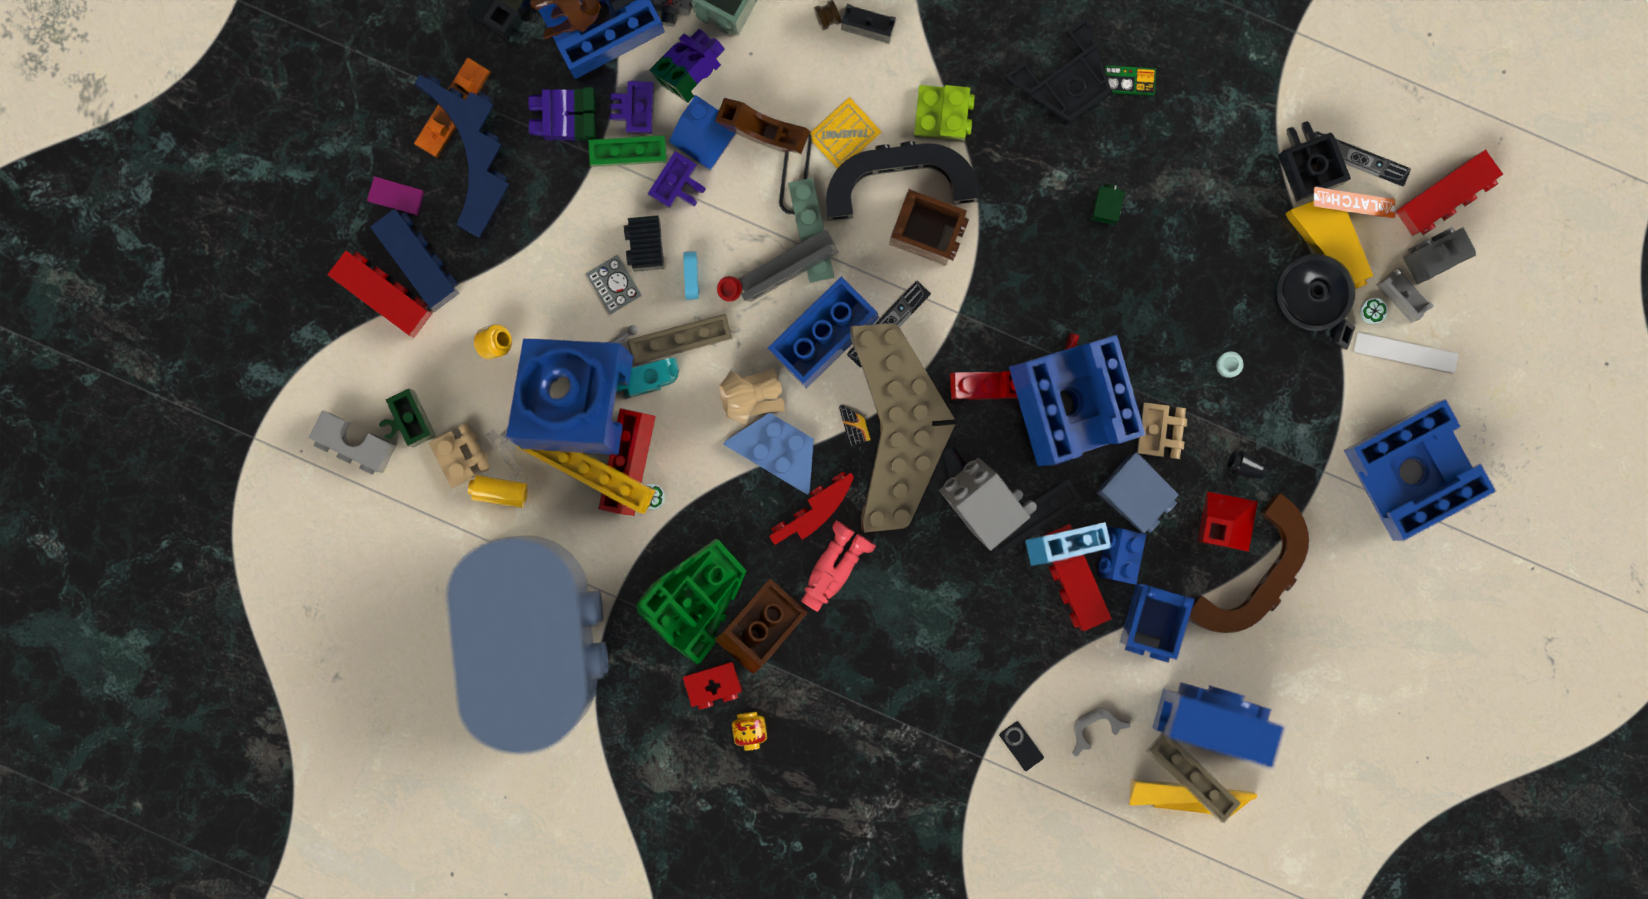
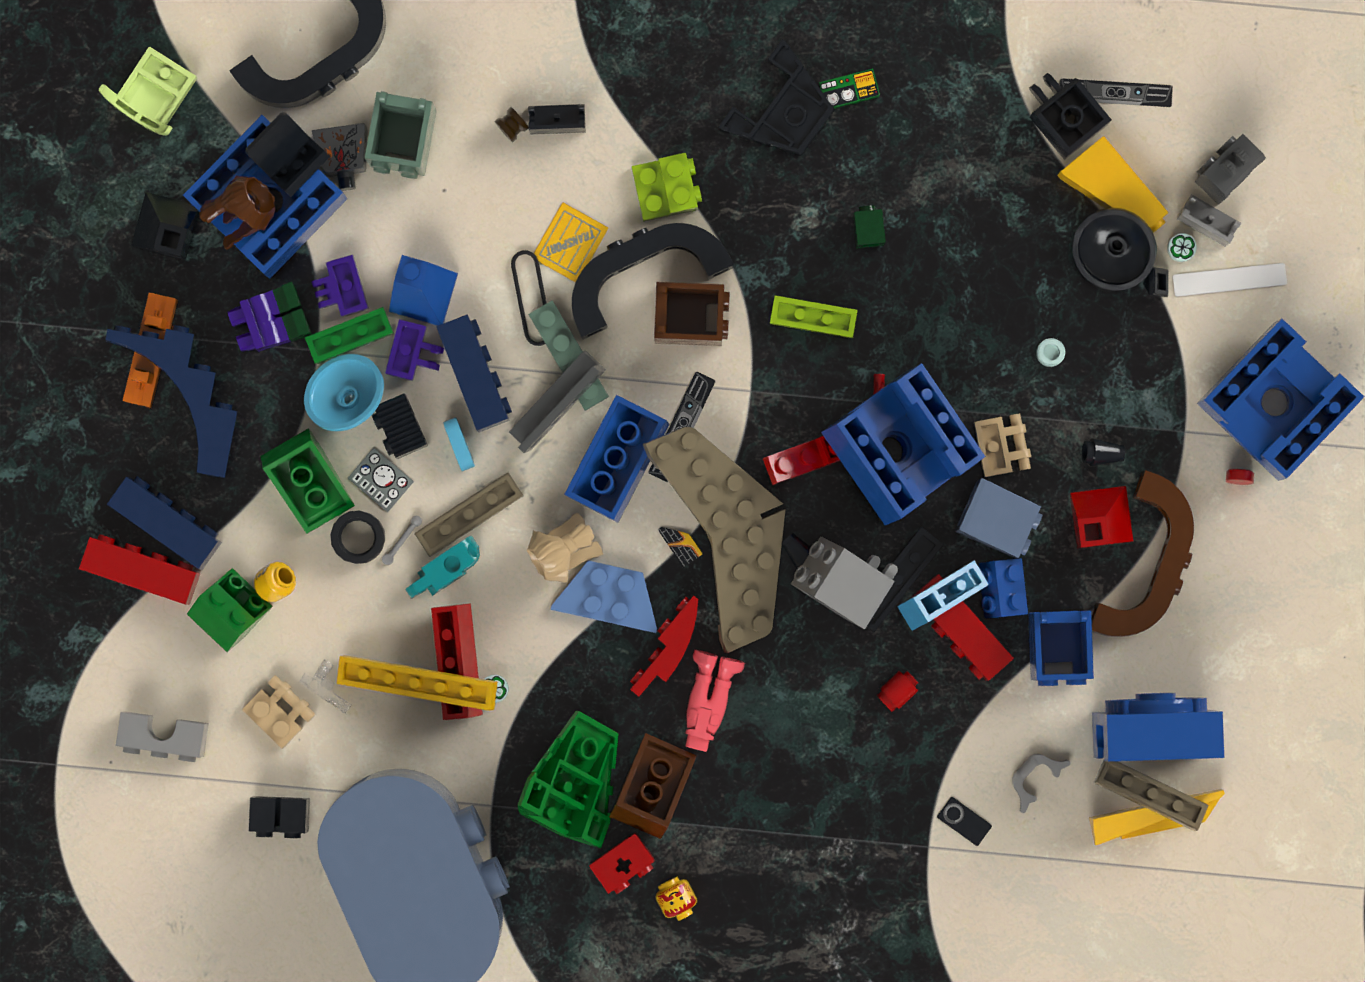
camera: 20 degrees left, 0 degrees up
(395, 196) = (121, 462): magenta tile -> none
(408, 419) = (214, 691): dark green brick -> none
(430, 544) = (280, 815): none -> black piece
(445, 353) = (229, 610): none -> green slope
(498, 491) = (332, 736): yellow brick -> none
(549, 264) = (306, 480): none -> green slope
(574, 307) = (340, 524): none -> black tyre
(584, 415) = (398, 628): blue piece -> none
(606, 197) = (336, 384): none -> medium azure dish
(687, 63) = (383, 224): dark purple hips -> none
(723, 218) = (473, 373): none -> dark blue brick
(729, 288) = (503, 444): red plate -> none
(761, 128) = (482, 266): reddish brown arch -> none
(1001, 613) = (898, 690): none -> red brick
(1034, 266) = (813, 317): none -> lime plate
(1354, 202) = (1124, 142): sticker -> none
(1360, 526) = (1240, 476): none -> red tile
(1449, 193) = (1219, 99): red brick -> none

